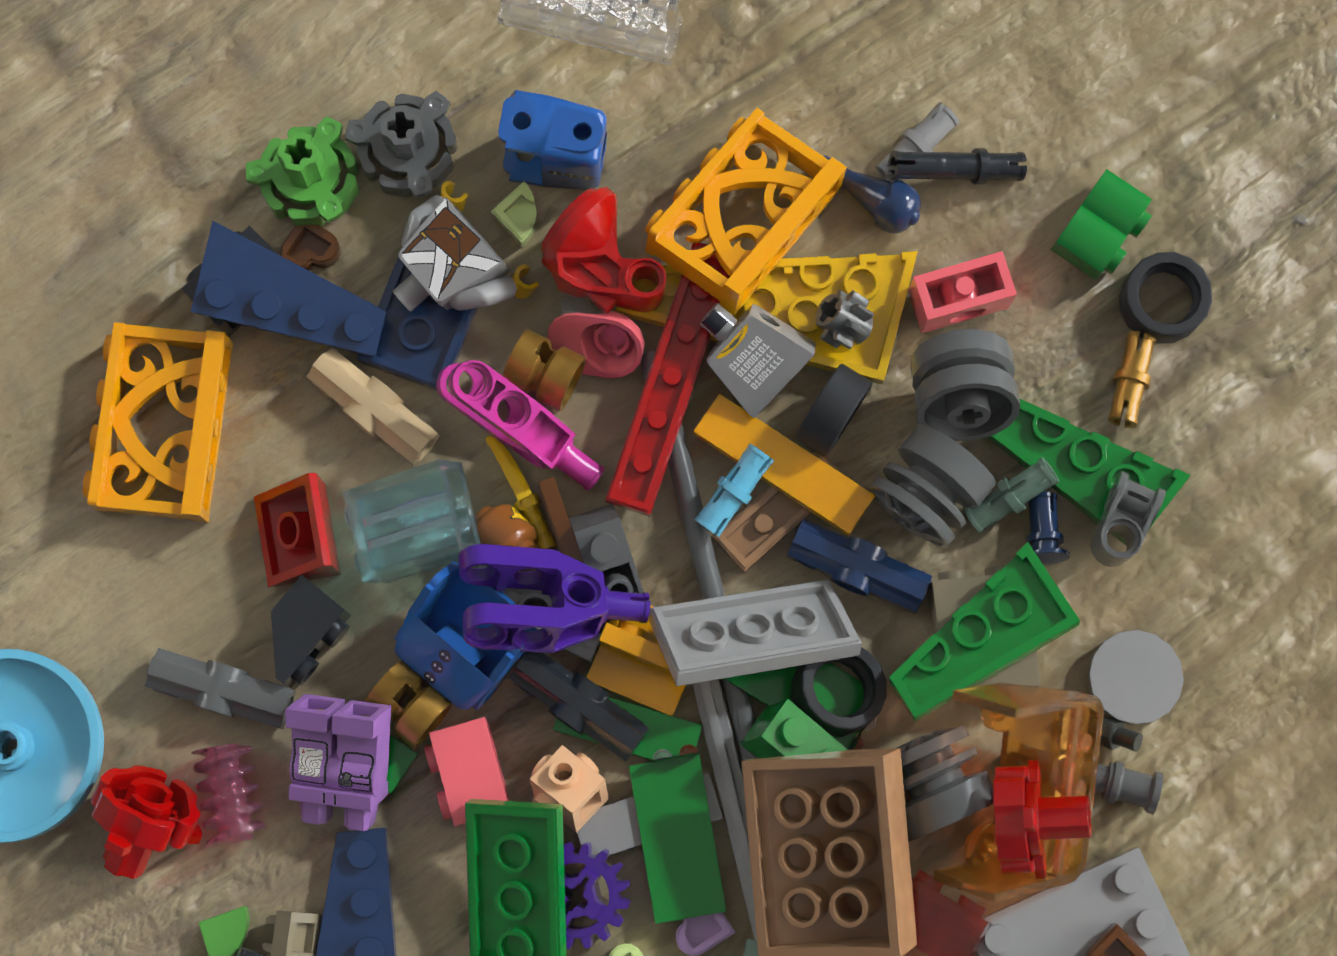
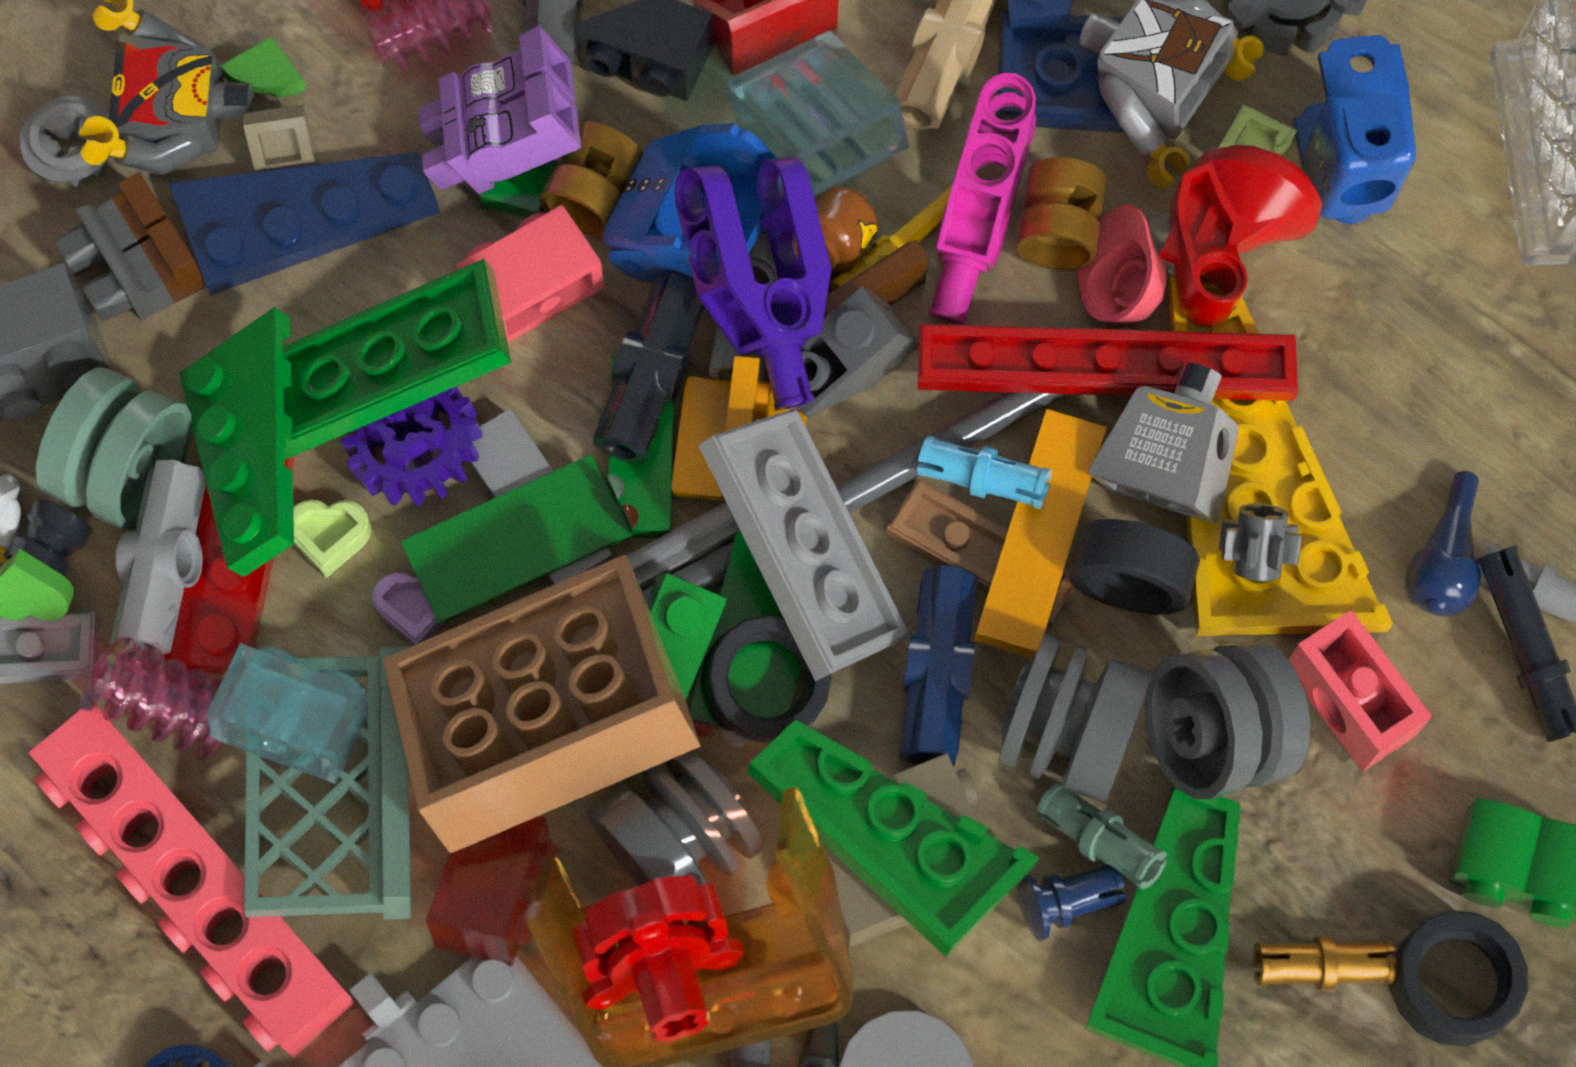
camera: 75 degrees right, 10 degrees down
(570, 782) = (541, 386): light nougat brick -> none
(744, 267) = (1409, 355): light orange fence -> none
(1130, 513) = (1132, 991): dark grey piece -> none

